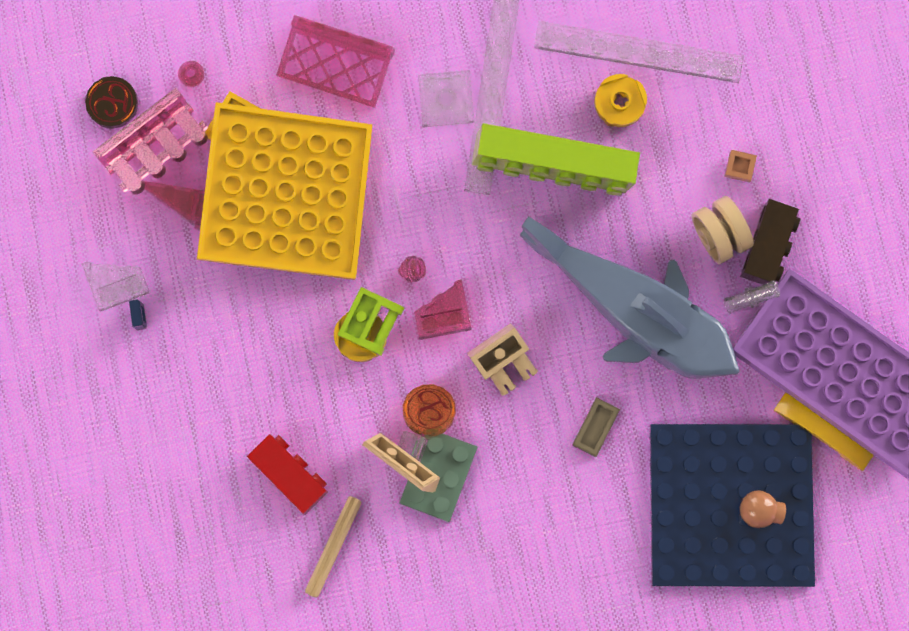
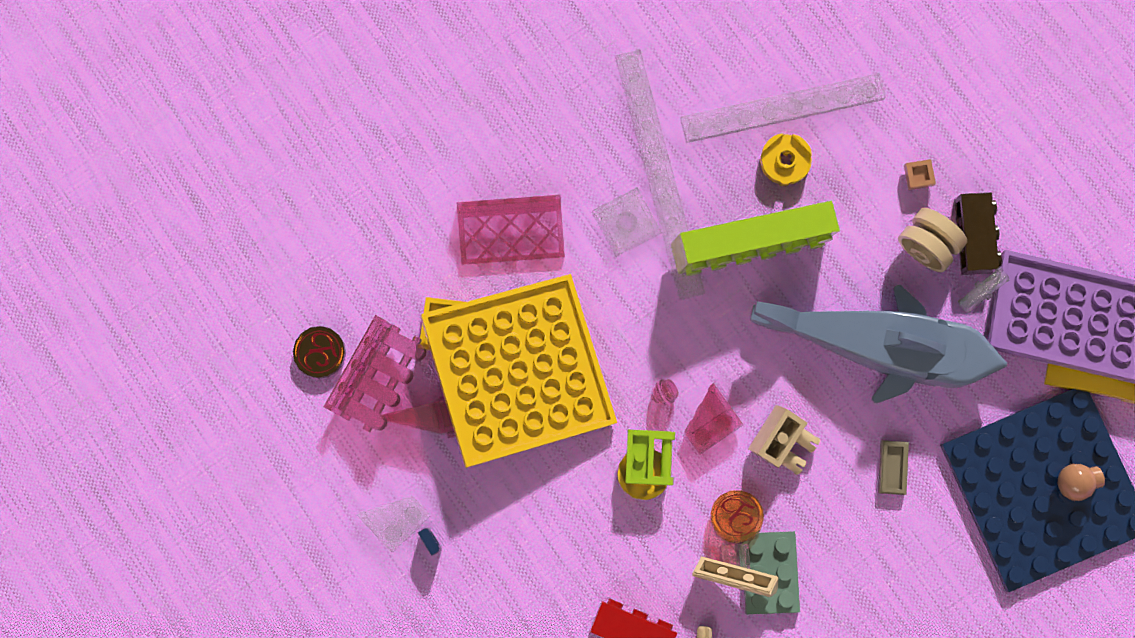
camera: 25 degrees left, 0 degrees up
(191, 81) = (382, 303): clear pink plate -> none

